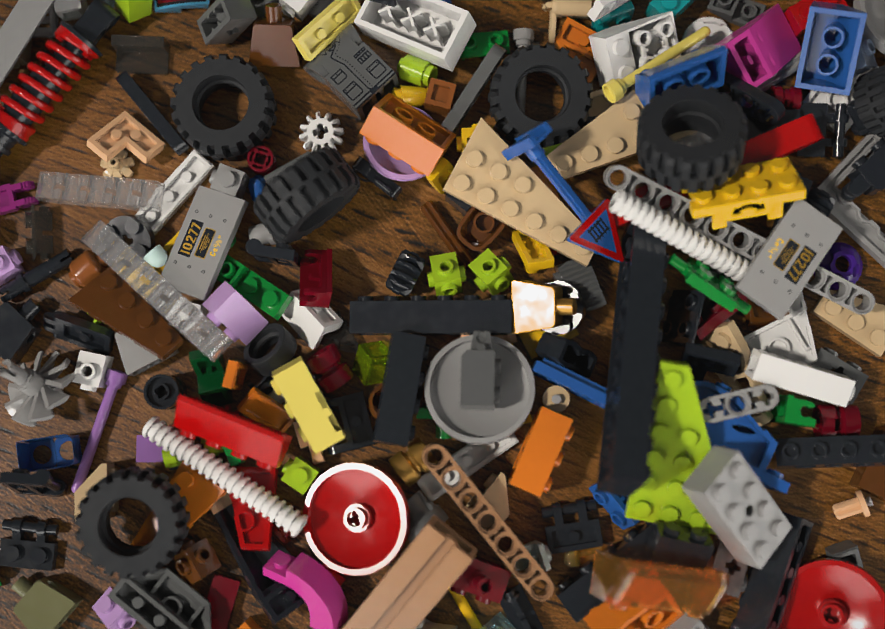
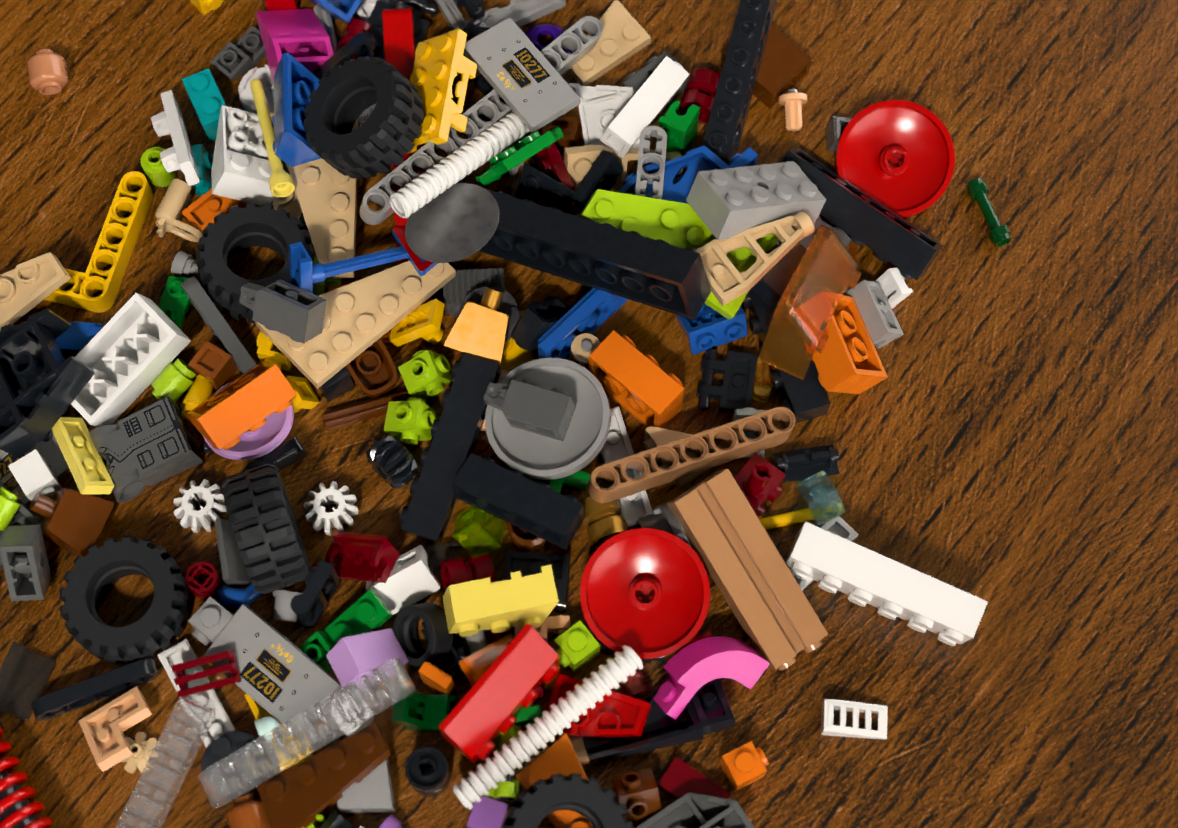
camera: 75 degrees left, 15 degrees down
(177, 178) = (183, 679): none -> dark red tile
(344, 234) = (339, 516): none -> white gear
(492, 139) = (285, 309): none -> dark grey hinge
(620, 252) = (453, 224): none -> flat silver sticker
(653, 496) = (722, 275): none -> tan plate

